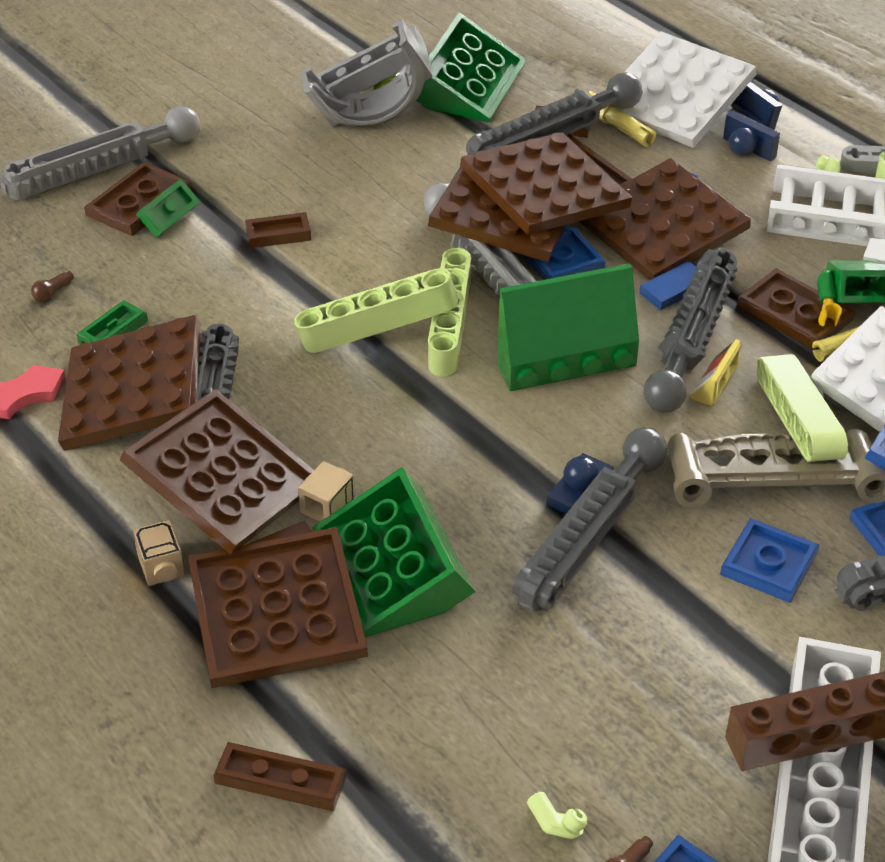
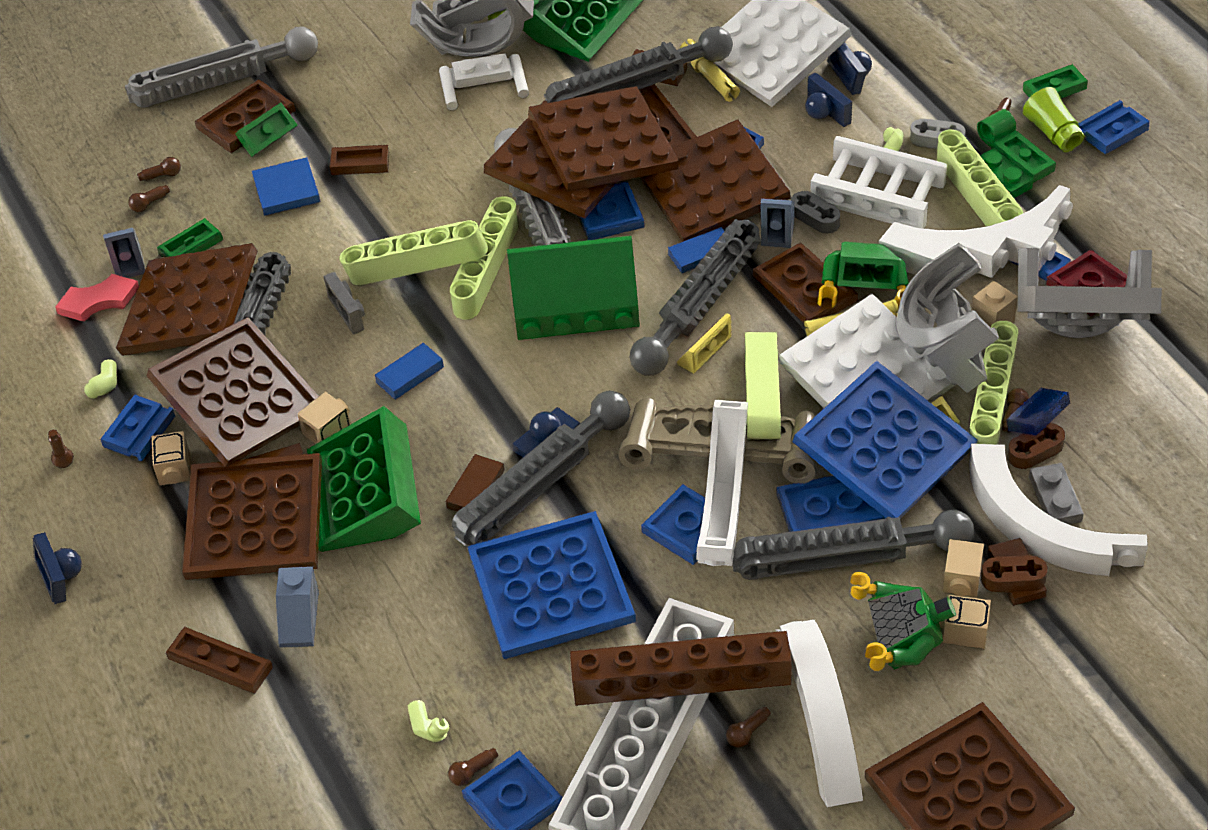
camera: 15 degrees right, 5 degrees up
(22, 564) = (61, 455): none -> reddish brown piece
(45, 339) = (125, 253): none -> sand blue slope
(48, 691) = (55, 566): none -> dark blue tile
(52, 480) = (103, 382): none -> yellowish green arm
(67, 253) = (169, 166): none -> reddish brown piece
(107, 524) = (135, 425): none -> blue plate
(204, 262) = (286, 186): none -> blue tile
(309, 369) = (341, 298): none -> flat silver plate
(359, 702) = (296, 606): none -> sand blue slope
(380, 138) = (482, 71): none -> white plate
(402, 433) = (409, 371): none -> blue tile
(518, 543) = (475, 479): none -> reddish brown tile
(645, 643) = (550, 585): none -> blue plate
(750, 246) = (777, 222): none -> sand blue slope
(778, 239) = (816, 212): none -> dark grey beam
(804, 513) = (723, 484): none -> white arch

